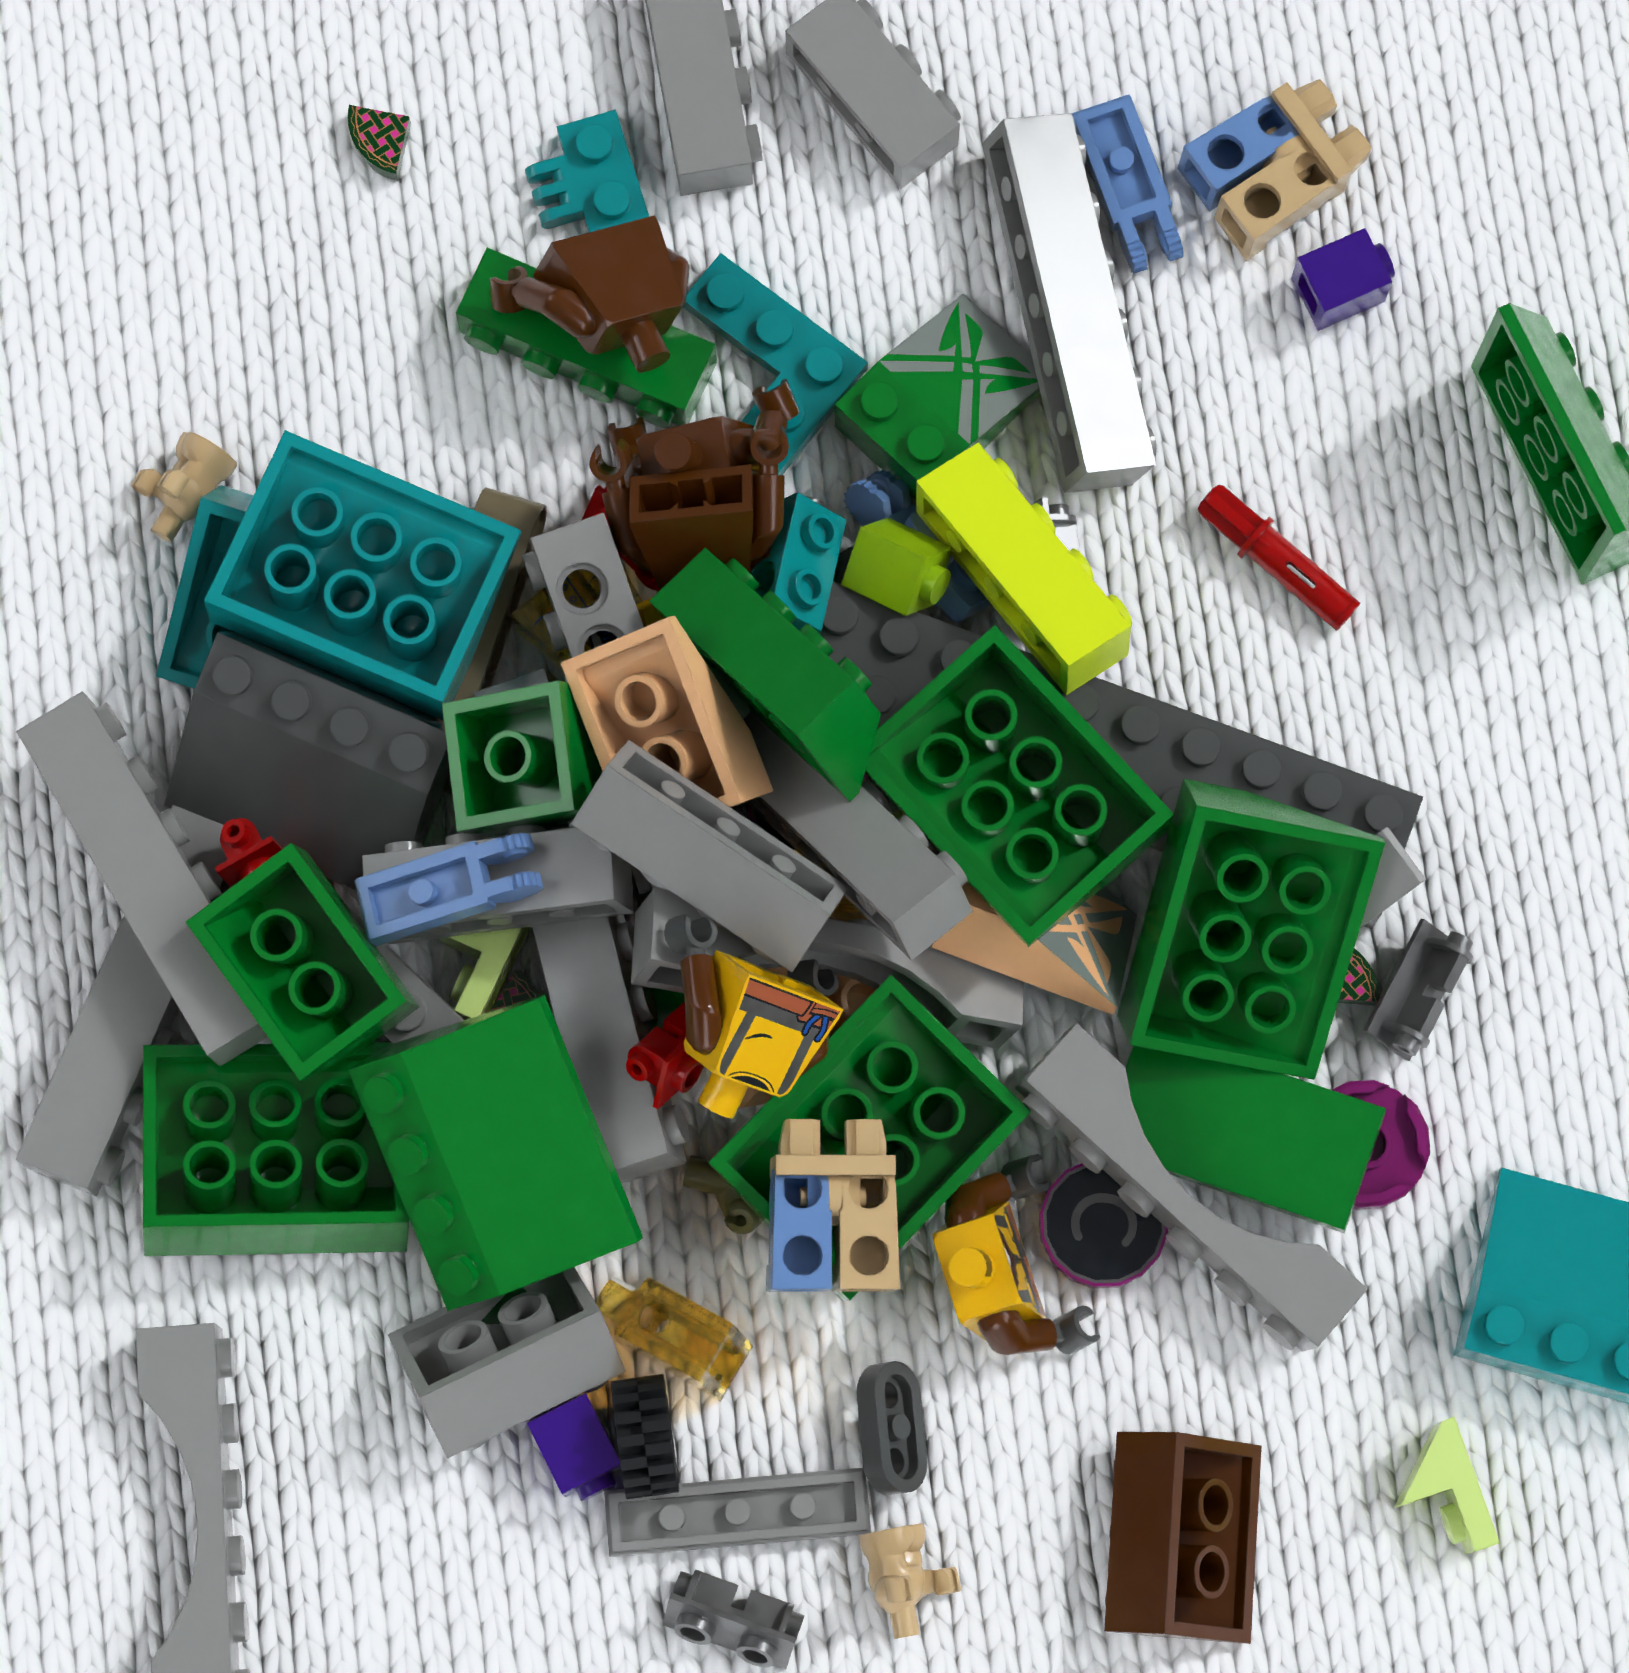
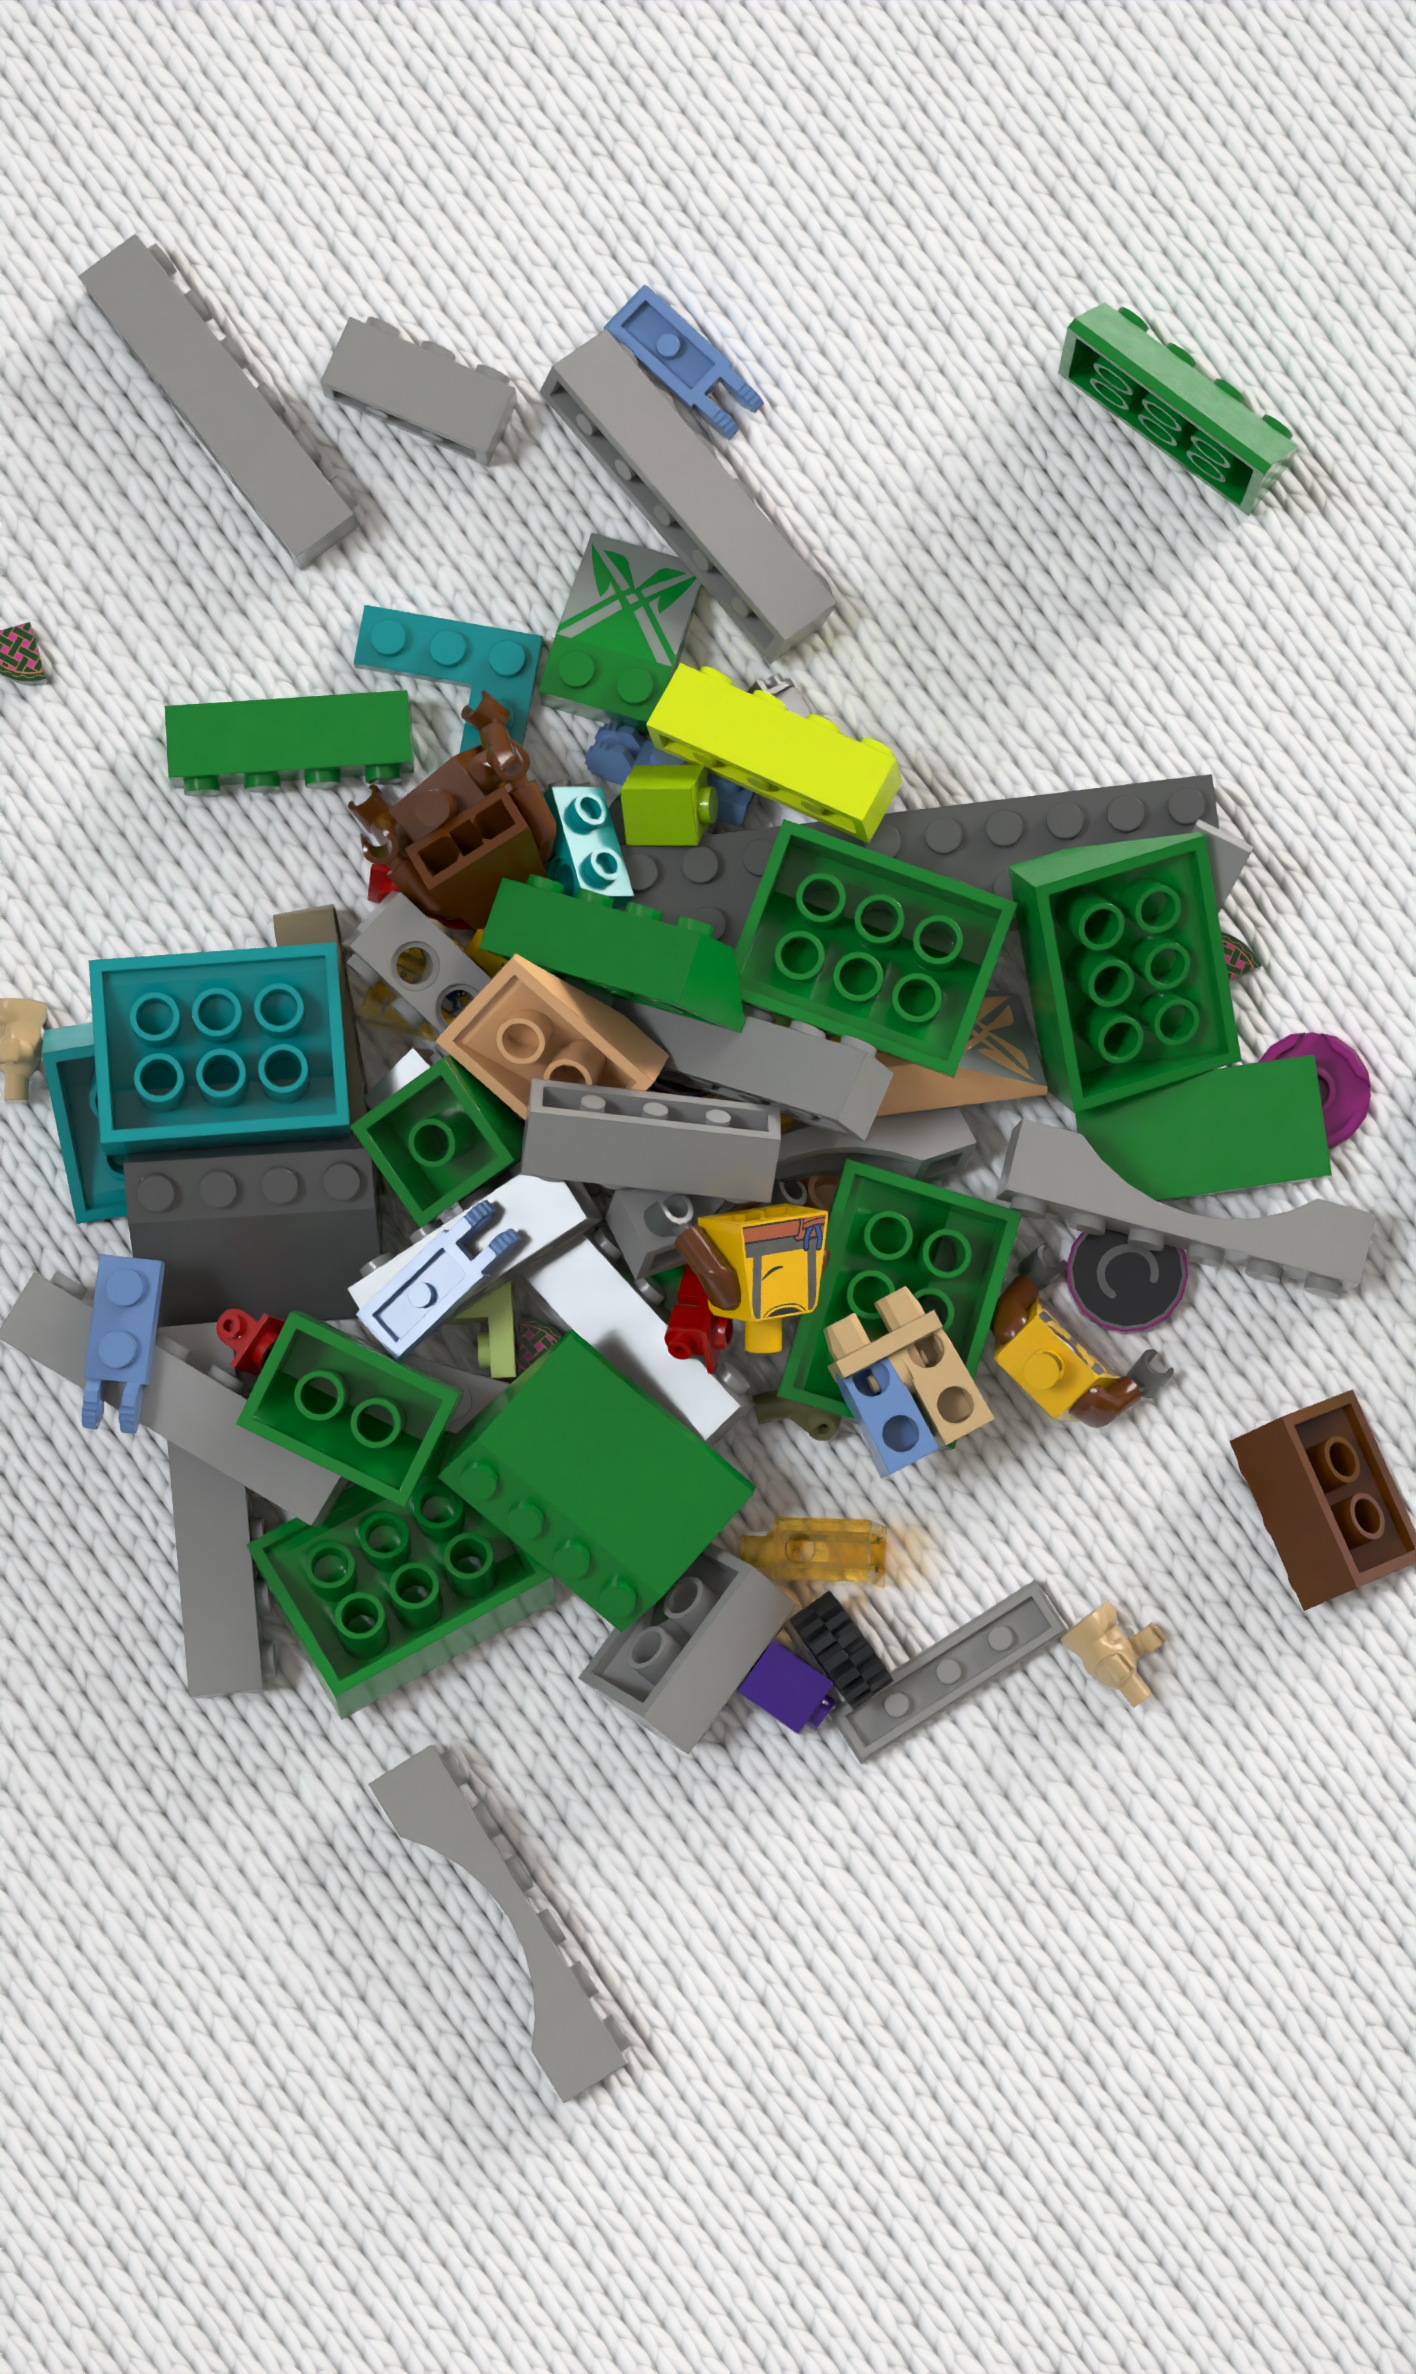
camera: 25 degrees left, 5 degrees up
(127, 791) = (122, 1336): none -> medium blue hinge
(591, 178) = (219, 596): teal hinge -> none
(605, 290) = (292, 695): reddish brown torso -> none
(758, 1634) = (1020, 1762): flat silver hinge -> none
(891, 1428) = (1040, 1535): dark grey plate -> none
(1272, 164) = (805, 261): tan hips -> none
(1274, 552) = (976, 624): red axle -> none
(1343, 278) = (912, 353): dark purple brick -> none
(1415, 989) = (1286, 950): flat silver hinge -> none

